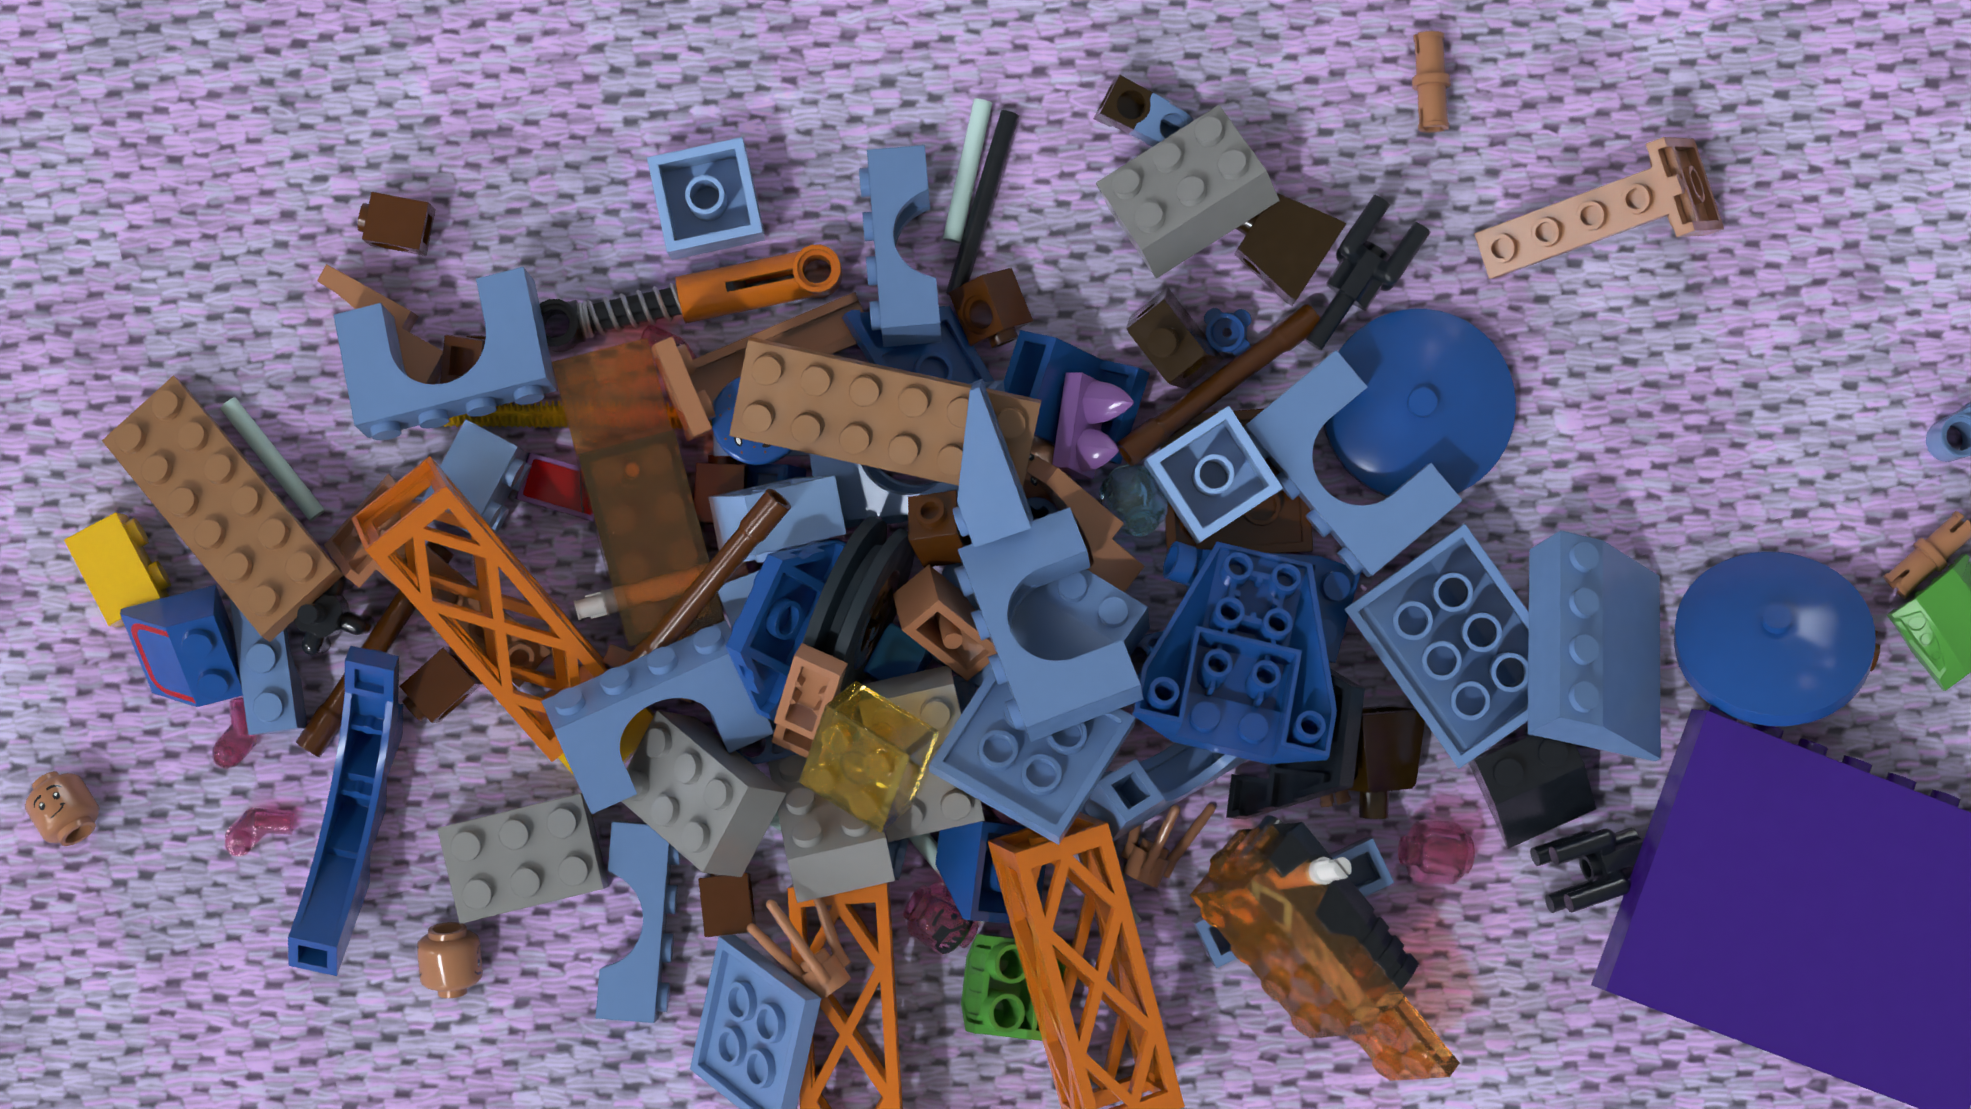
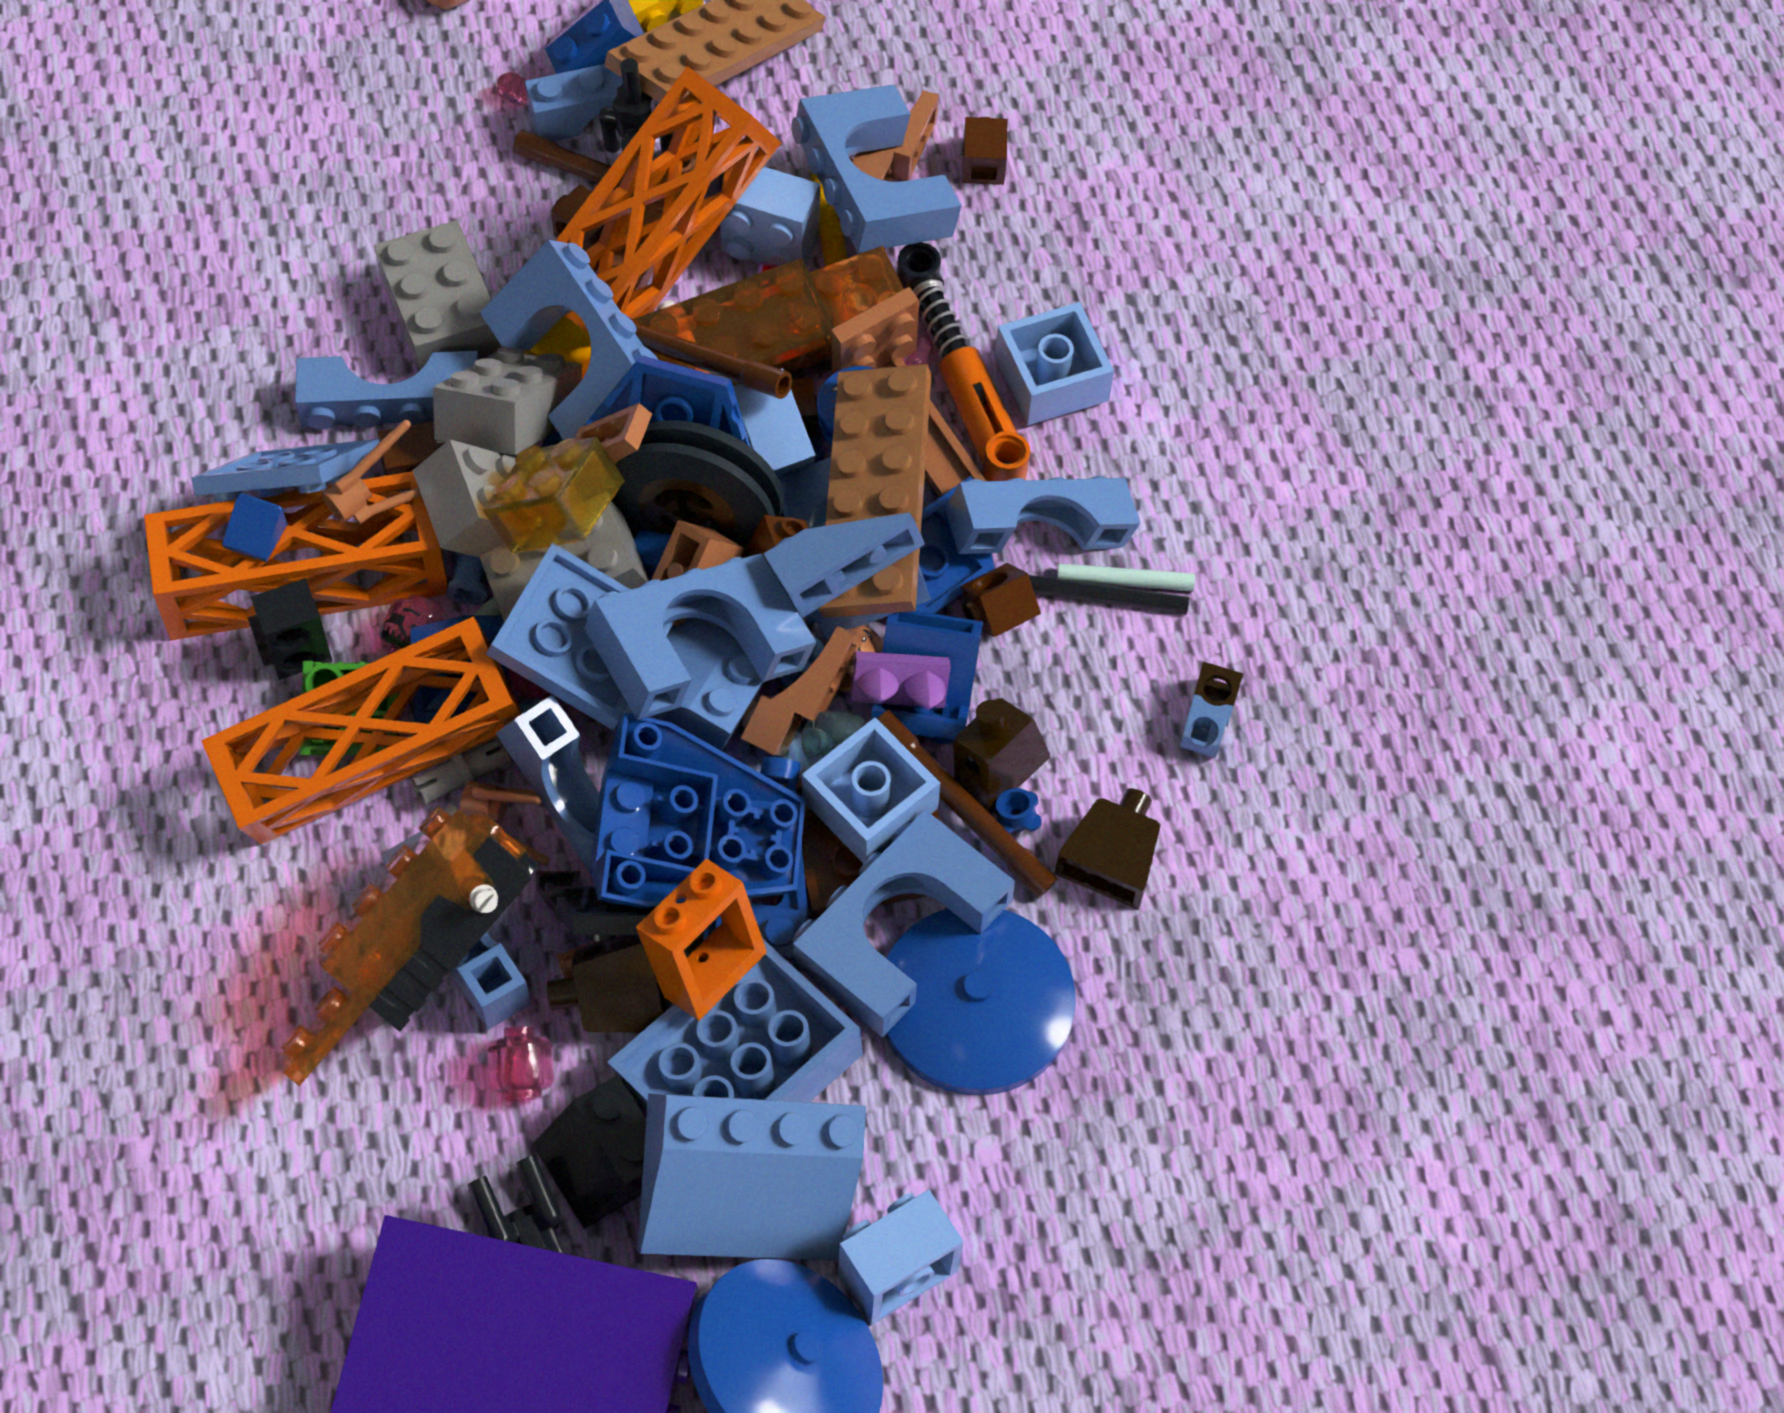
camera: 80 degrees right, 25 degrees down
(253, 826) = (446, 111): clear pink arm -> none
(272, 459) = (774, 85): light aqua bar -> none
(353, 812) = (467, 168): blue arch -> none
(449, 959) = (342, 255): nougat head -> none
(848, 1073) = (254, 527): none -> blue slope
(938, 1045) = (288, 629): none -> black brick
(1188, 191) = (1144, 744): light grey brick -> none
(1364, 269) = (1105, 921): black plant -> none
(1377, 652) = (721, 958): none -> orange window
(1431, 81) = (1304, 966): nougat pin -> none
(1670, 188) = (1252, 1193): nougat bracket -> none
(1683, 521) = (899, 1255): none -> light blue brick

